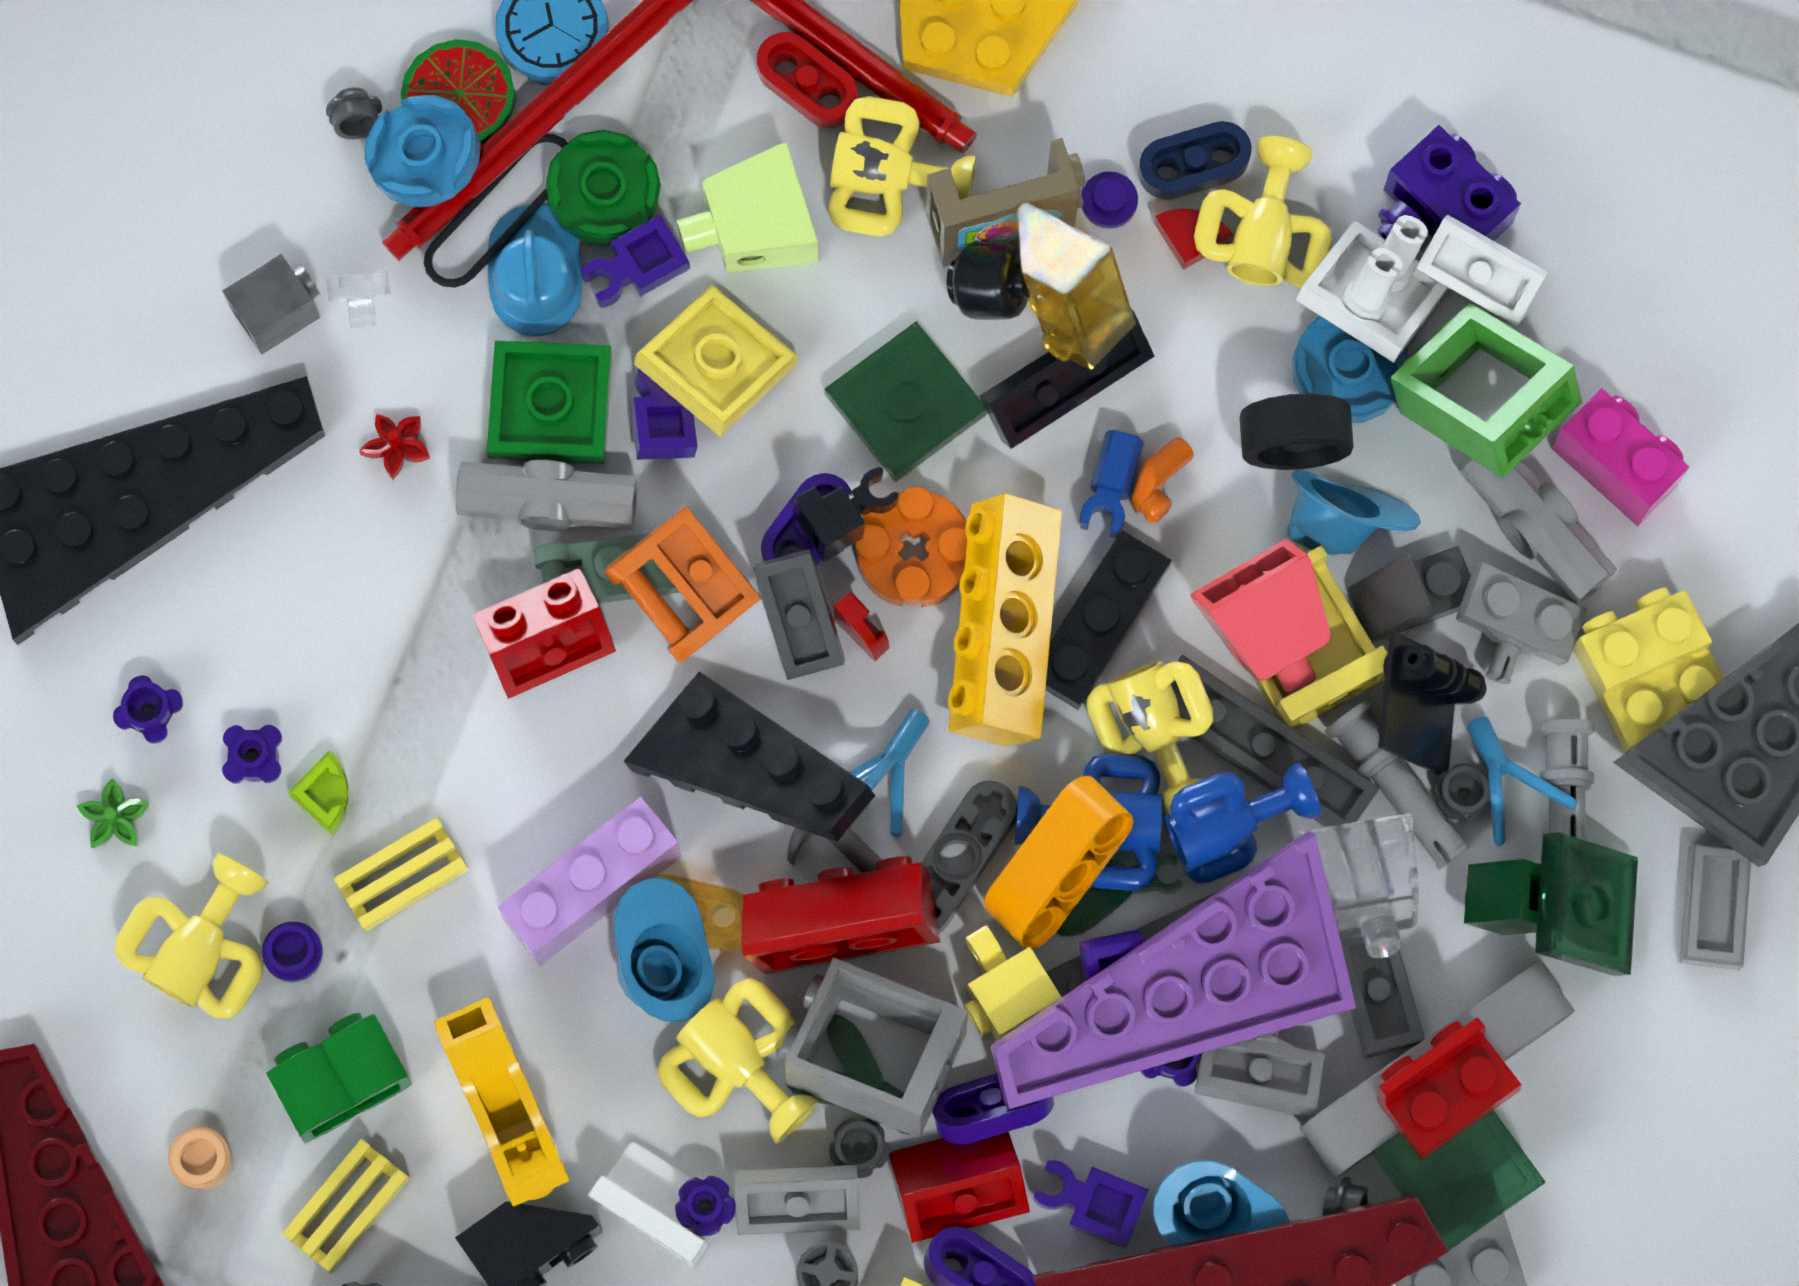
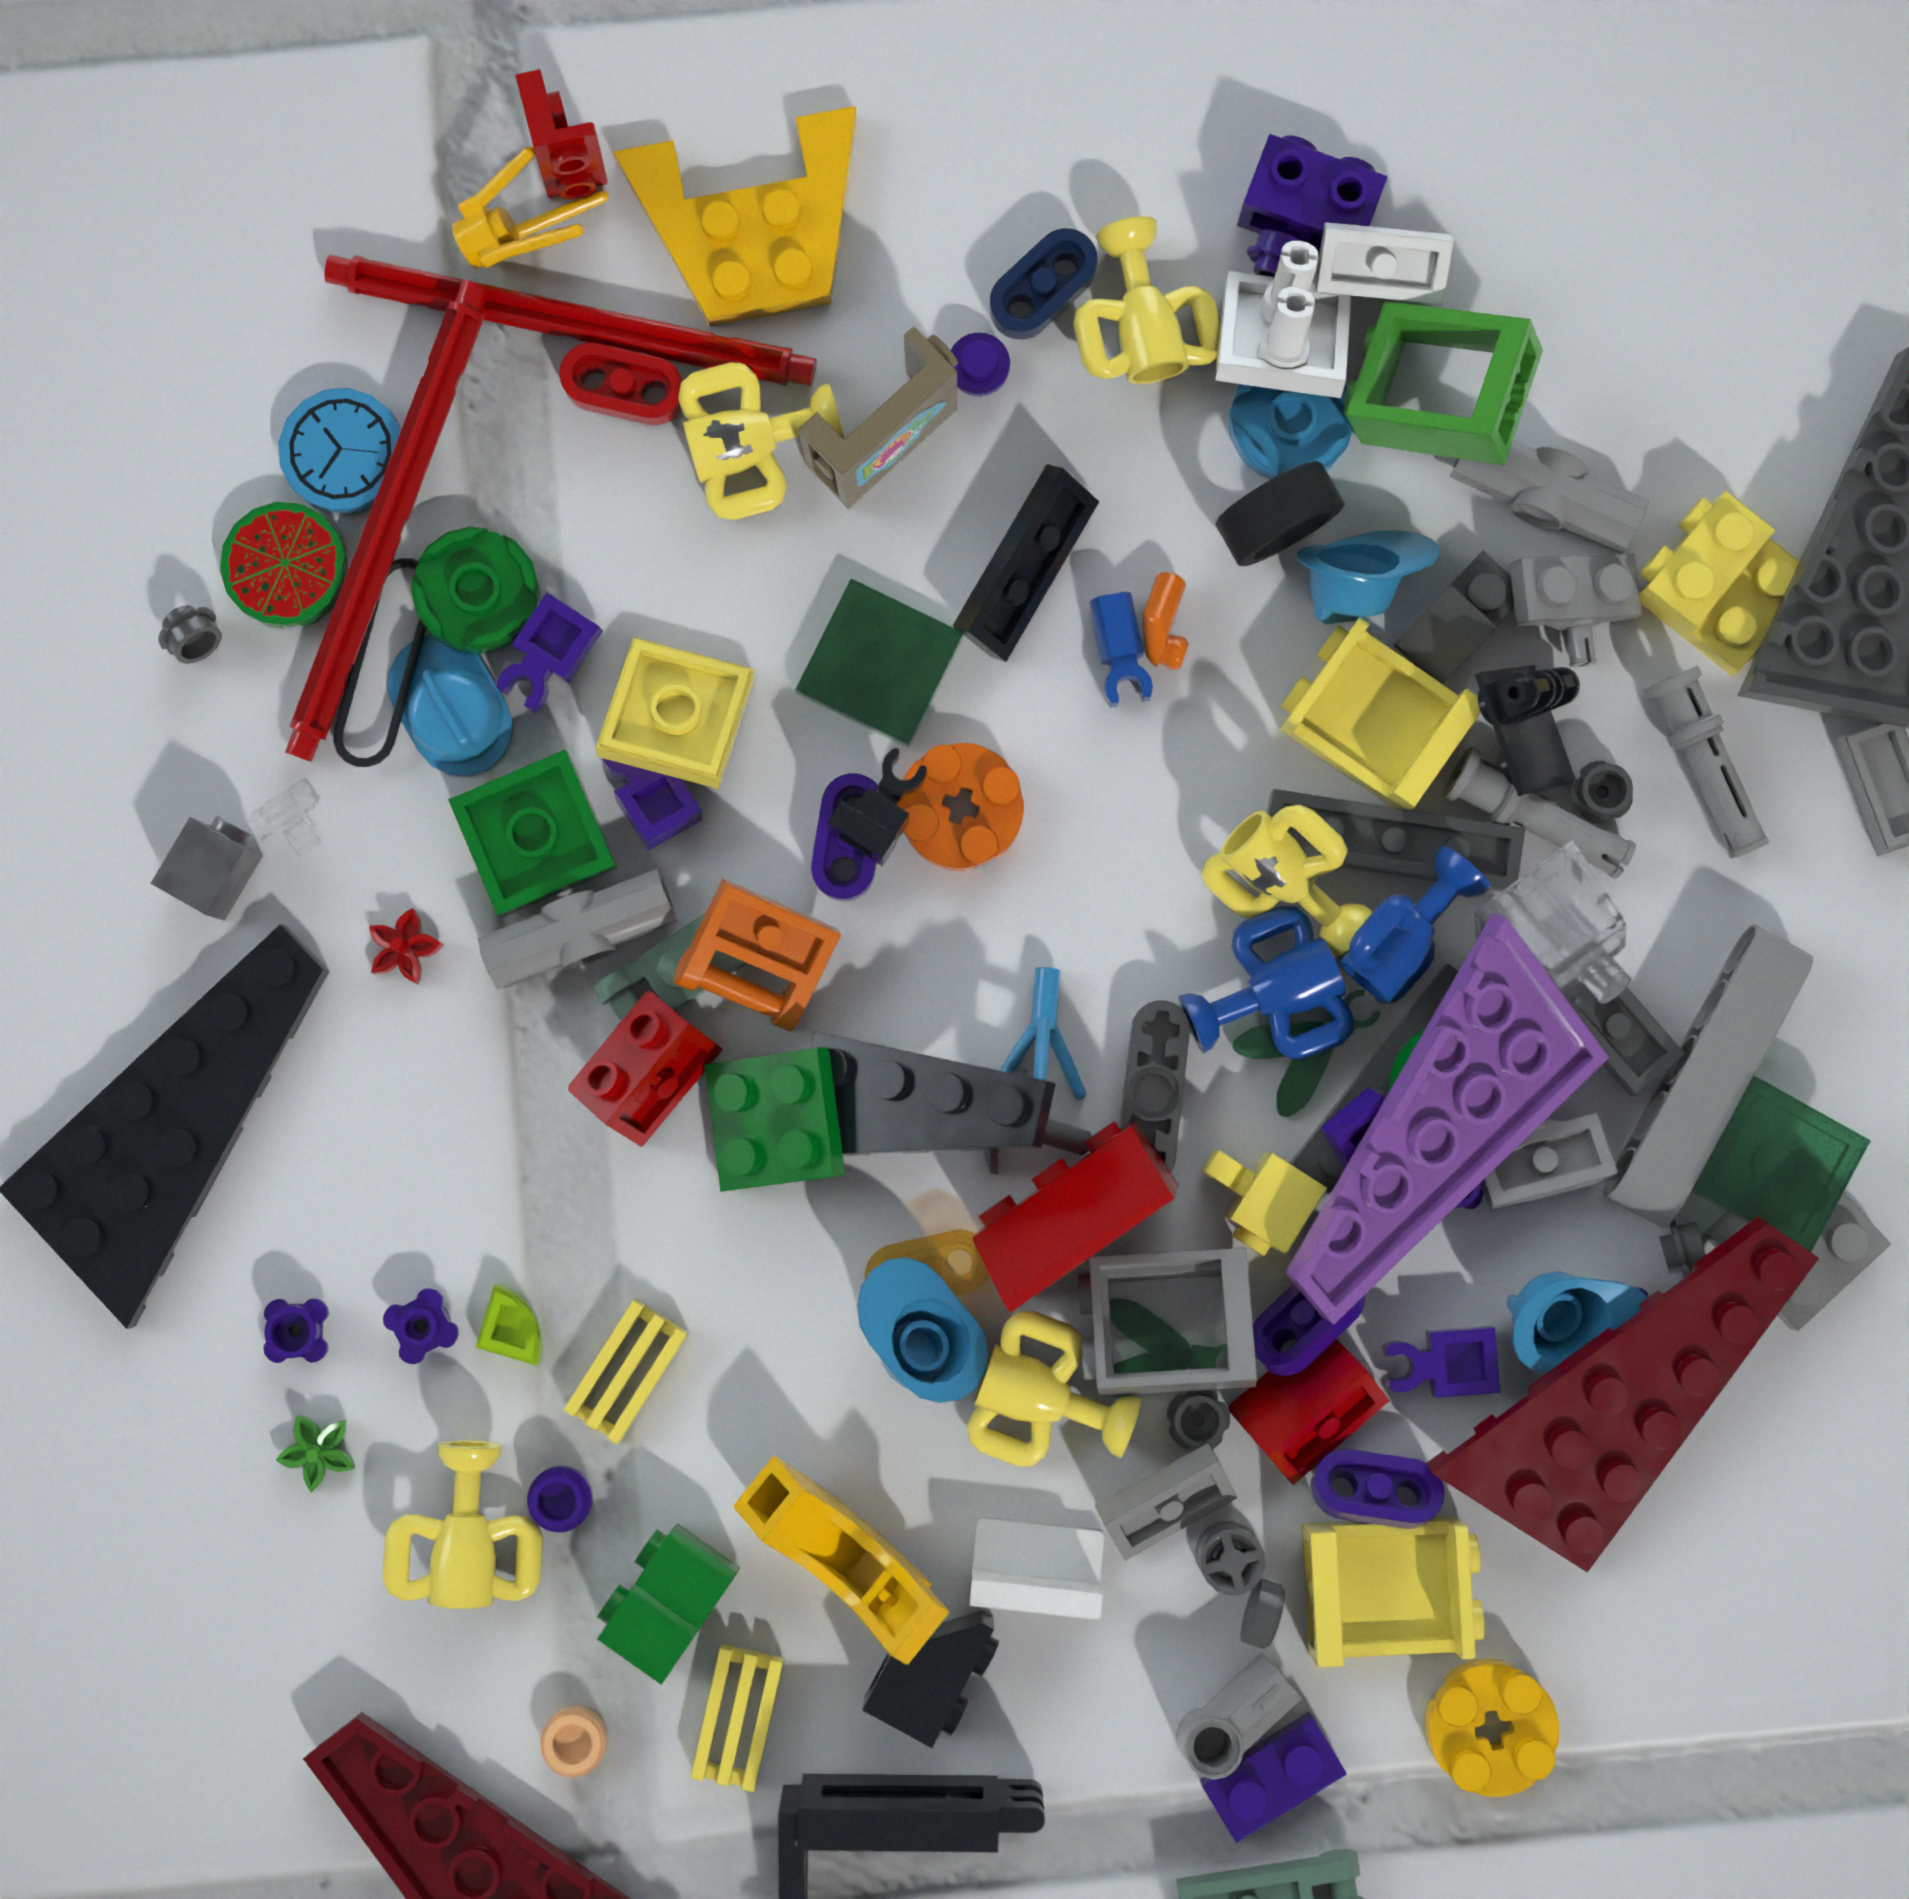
camera: 25 degrees left, 10 degrees up
(422, 151) = (278, 641): dark azure tile -> none
(589, 880) = (813, 1294): lavender brick -> none
(629, 724) = (774, 1119): none -> green plate
(710, 1221) = (1081, 1533): dark purple plate -> none
(754, 215) = (640, 547): yellowish green torso -> none
(799, 614) = (885, 929): dark grey plate -> none
(852, 618) = (944, 909): red tile -> none
(988, 282) = (907, 504): black head -> none
(1005, 620) = (1088, 838): yellow brick -> none
(1058, 862) = (1259, 1055): light orange beam -> none
(1072, 288) = (998, 475): clear yellow slope -> none
(1102, 617) = (1174, 789): black plate -> none
(1178, 231) = (1063, 364): red tile -> none
(1269, 614) = (1345, 711): coral torso -> none
(1446, 1087) = (1741, 1098): red bracket -> none
(1498, 765) = (1622, 749): dark azure plant -> none
(1503, 896) = (1705, 876): dark green brick -> none
(1586, 904) = (1778, 848): clear green tile -> none
(1621, 455) = (1601, 386): dark pink brick -> none

